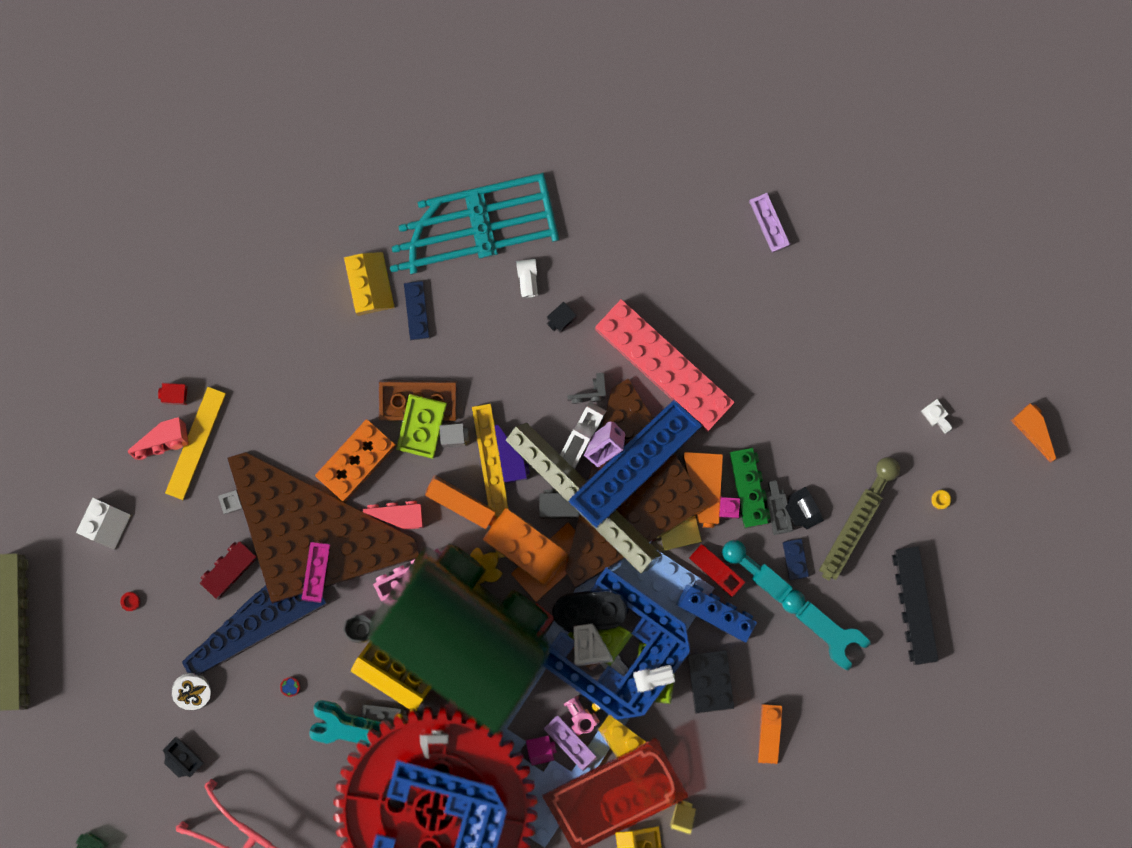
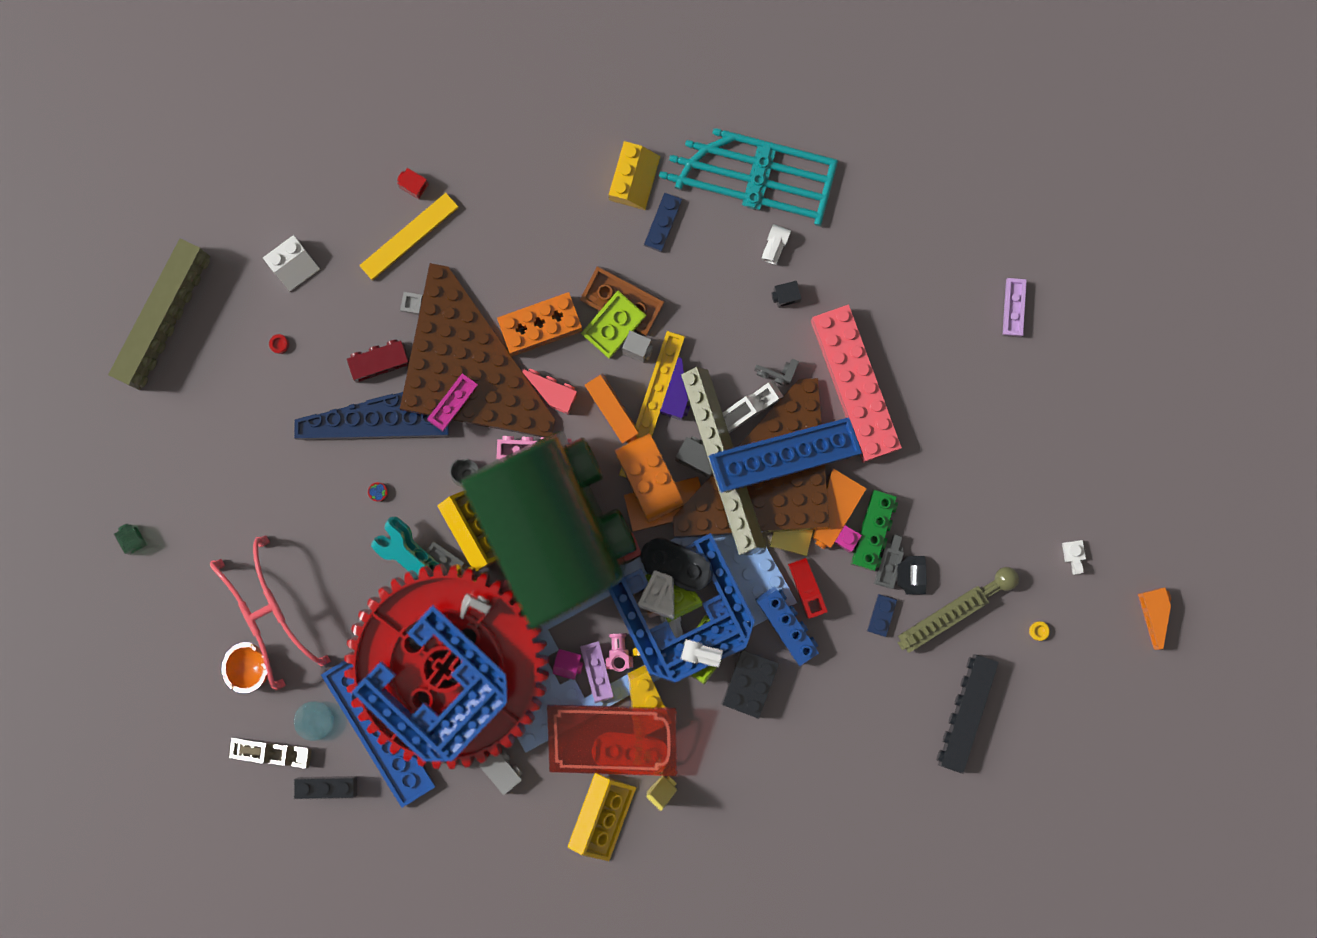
camera: 20 degrees right, 0 degrees up
(164, 437) = (383, 216): coral slope -> none
(181, 758) = (249, 504): black slope -> none
(191, 691) = (288, 450): white tile -> none
(489, 562) = (610, 475): yellow plate -> none
(609, 439) = (773, 422): lavender torso -> none
(769, 733) = (778, 757): orange slope -> none
(795, 603) = (862, 654): teal piece -> none

